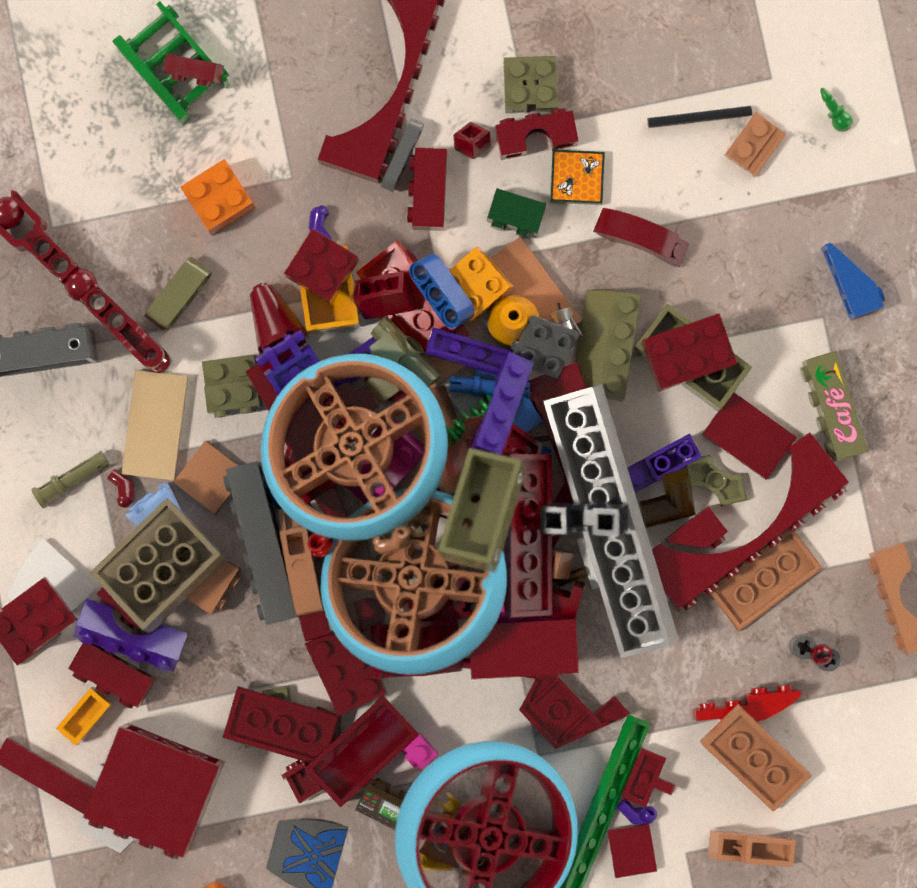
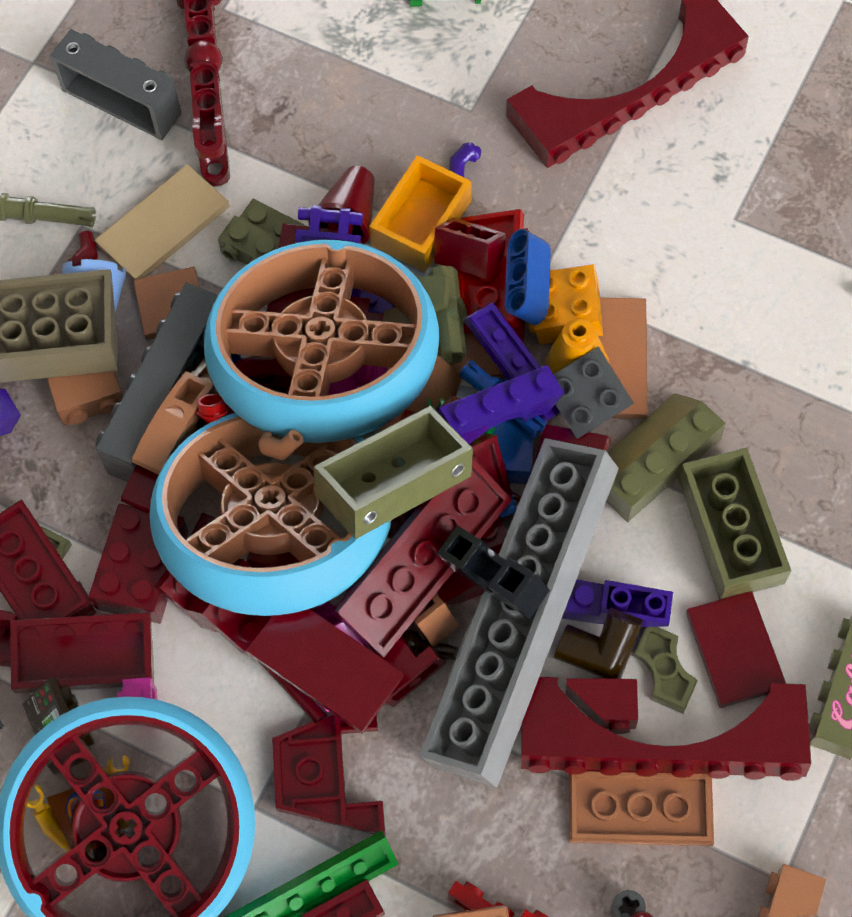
camera: 40 degrees right, 20 degrees down
(178, 294) = (282, 129): olive beam -> none
(217, 197) = (389, 74): orange brick -> none
(321, 266) = (430, 175): dark red brick -> none
(402, 155) = (589, 154): dark grey beam -> none
(427, 189) = (590, 198): dark red brick -> none
(472, 140) = (667, 187): dark red slope -> none
(516, 213) = (659, 274): dark green brick -> none
(530, 69) = (769, 192): olive piece -> none
(557, 126) = (715, 207): dark red arch -> none
(565, 317) = (635, 392): flat silver piece -> none
(577, 177) = (745, 287): tile -> none
(641, 234) = (774, 373): dark red arch -> none
(688, 352) = (733, 501): dark red piece -> none

